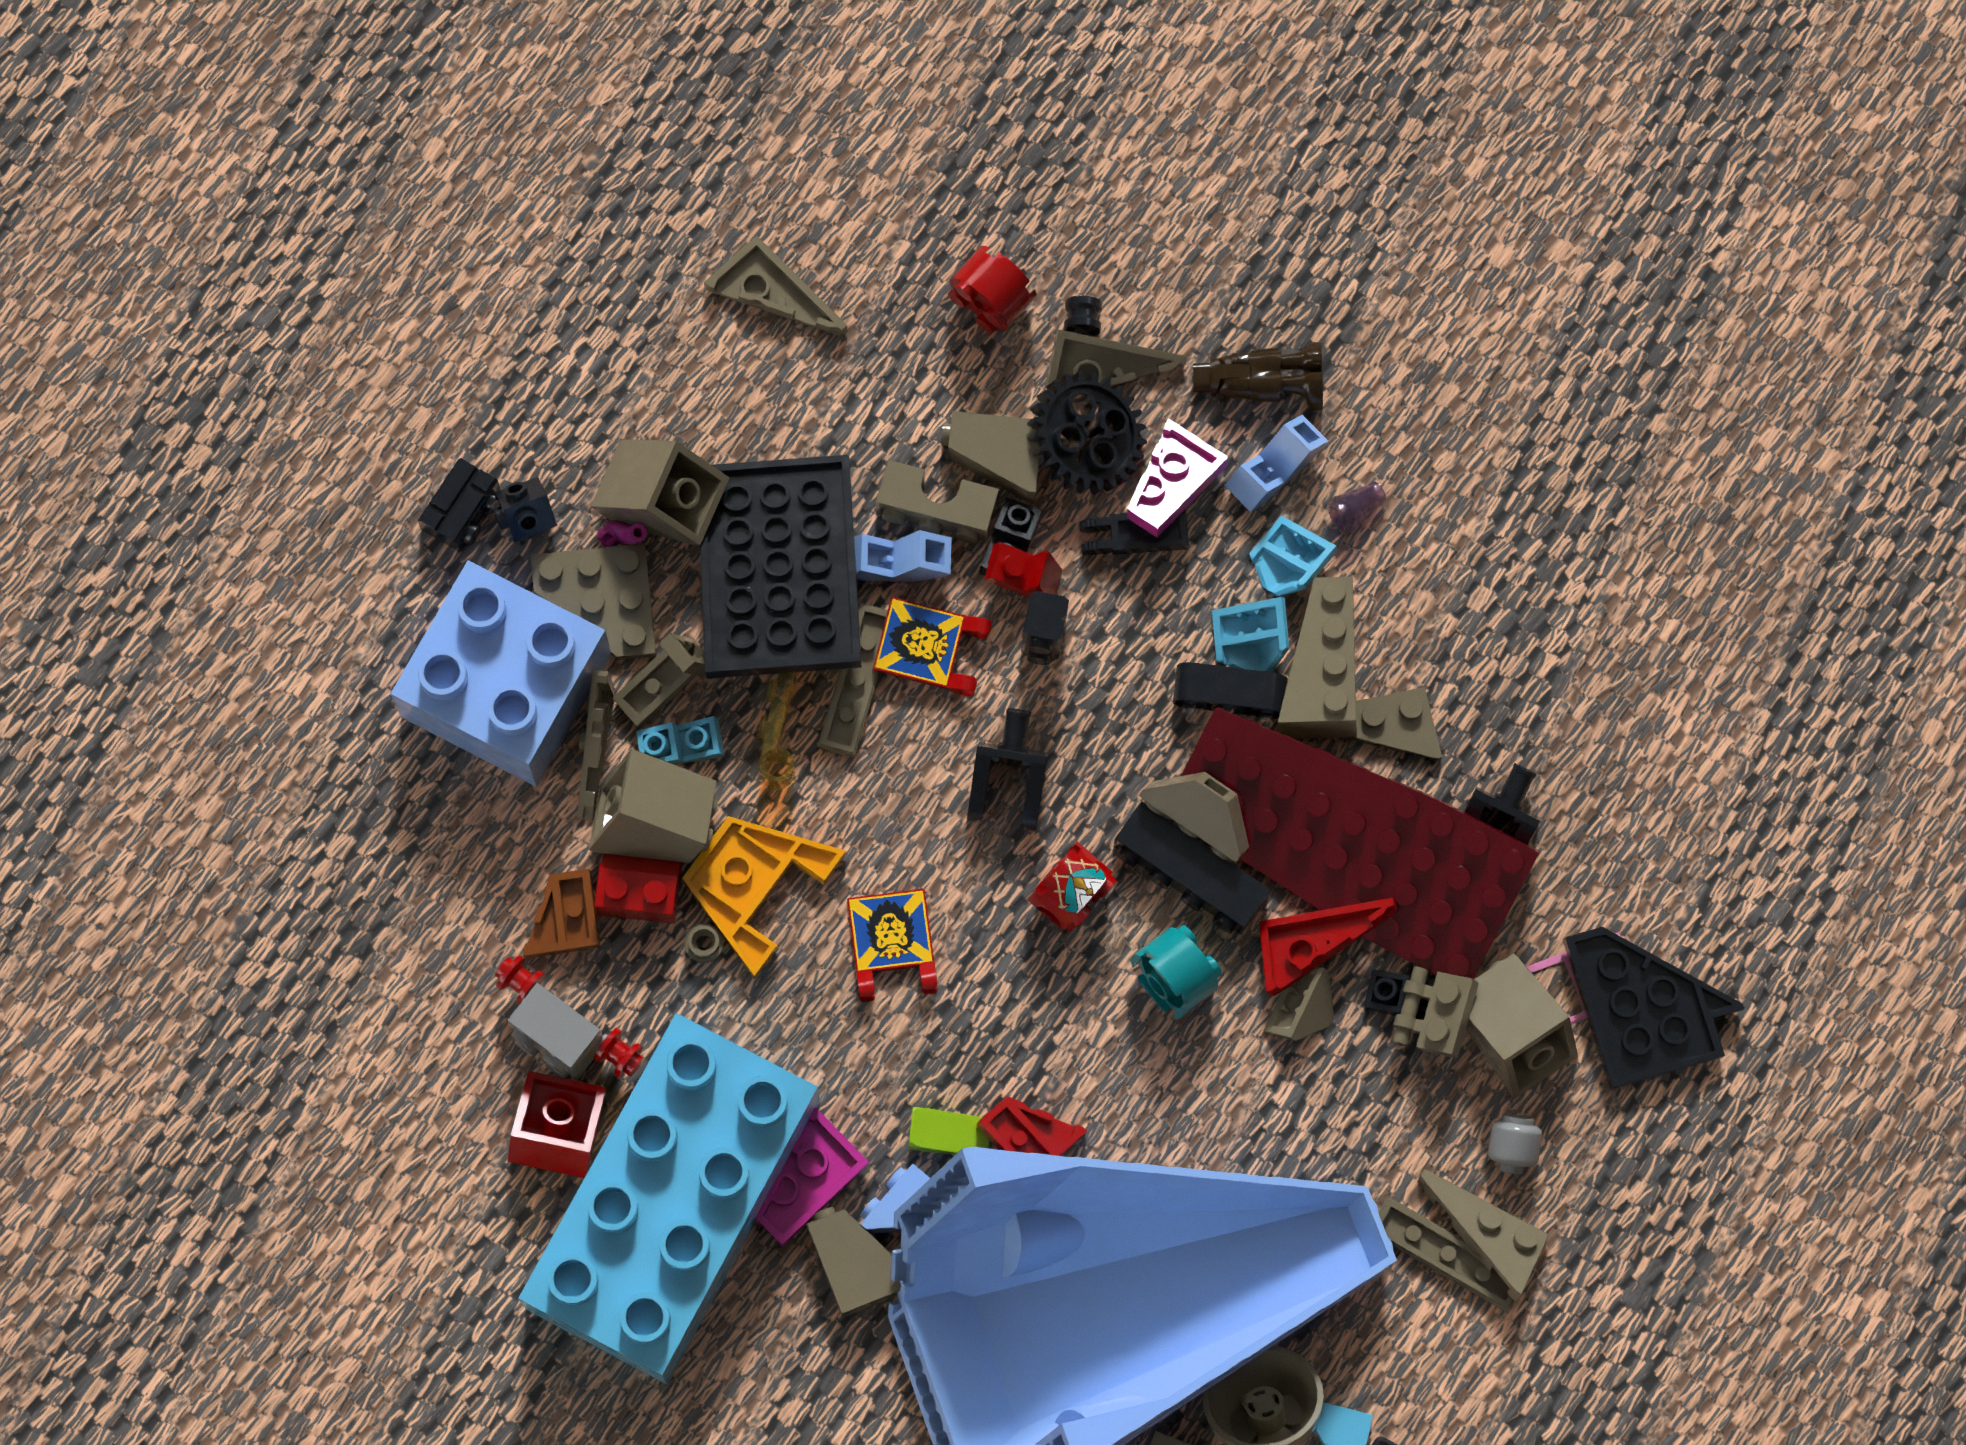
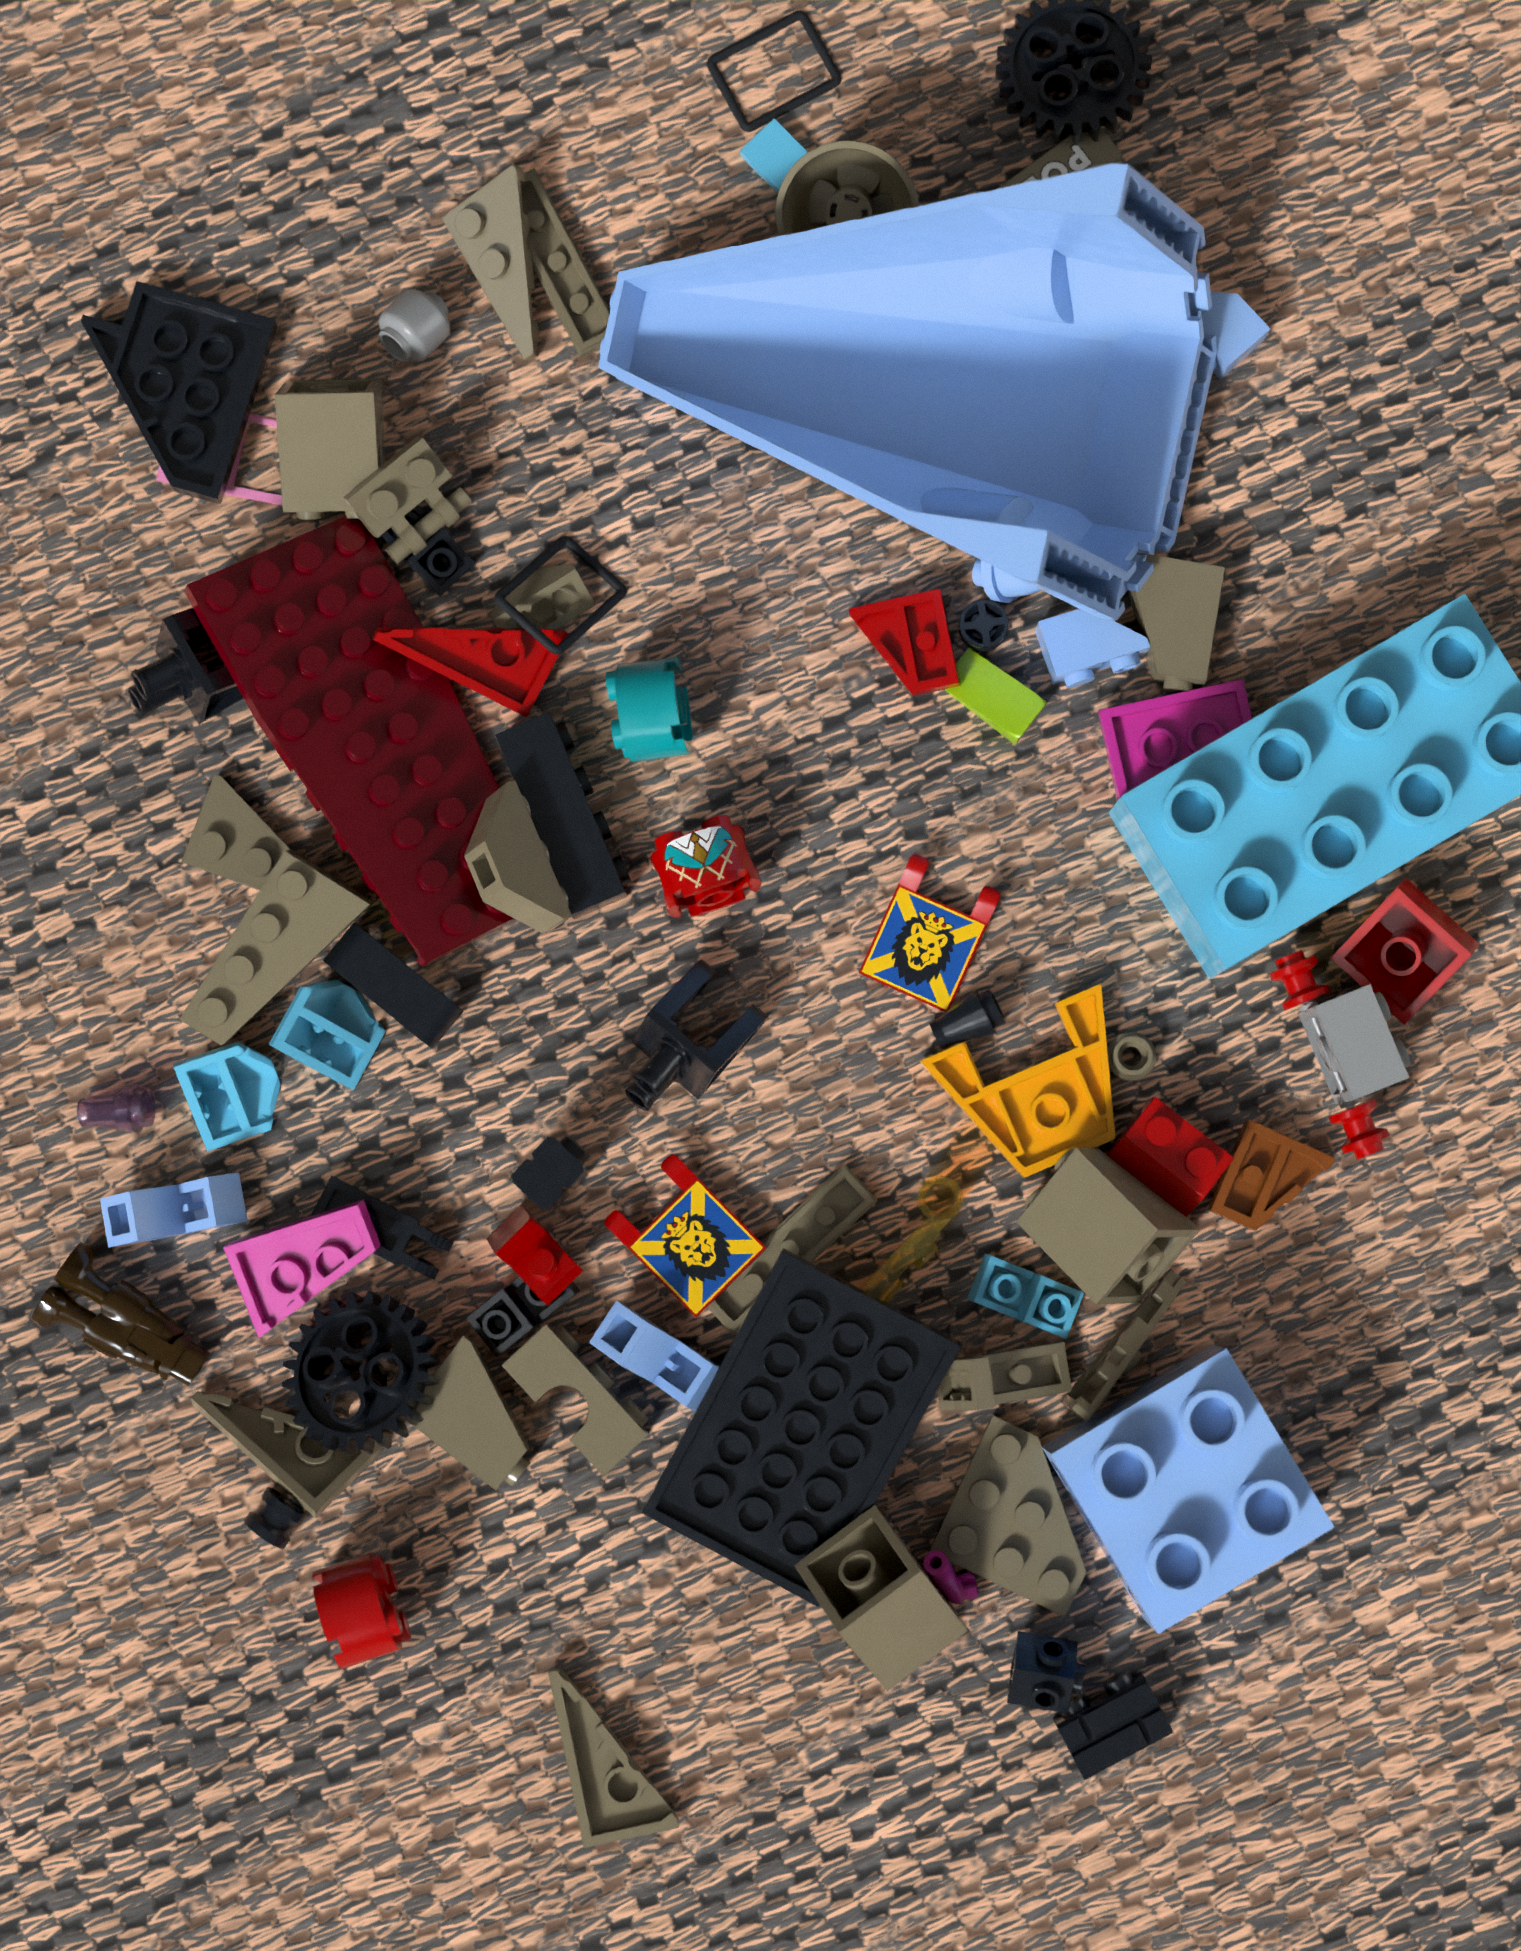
camera: 140 degrees left, 10 degrees up
(828, 902) = (969, 1019): none -> black cone
(1258, 1011) = (535, 565): none -> black piece

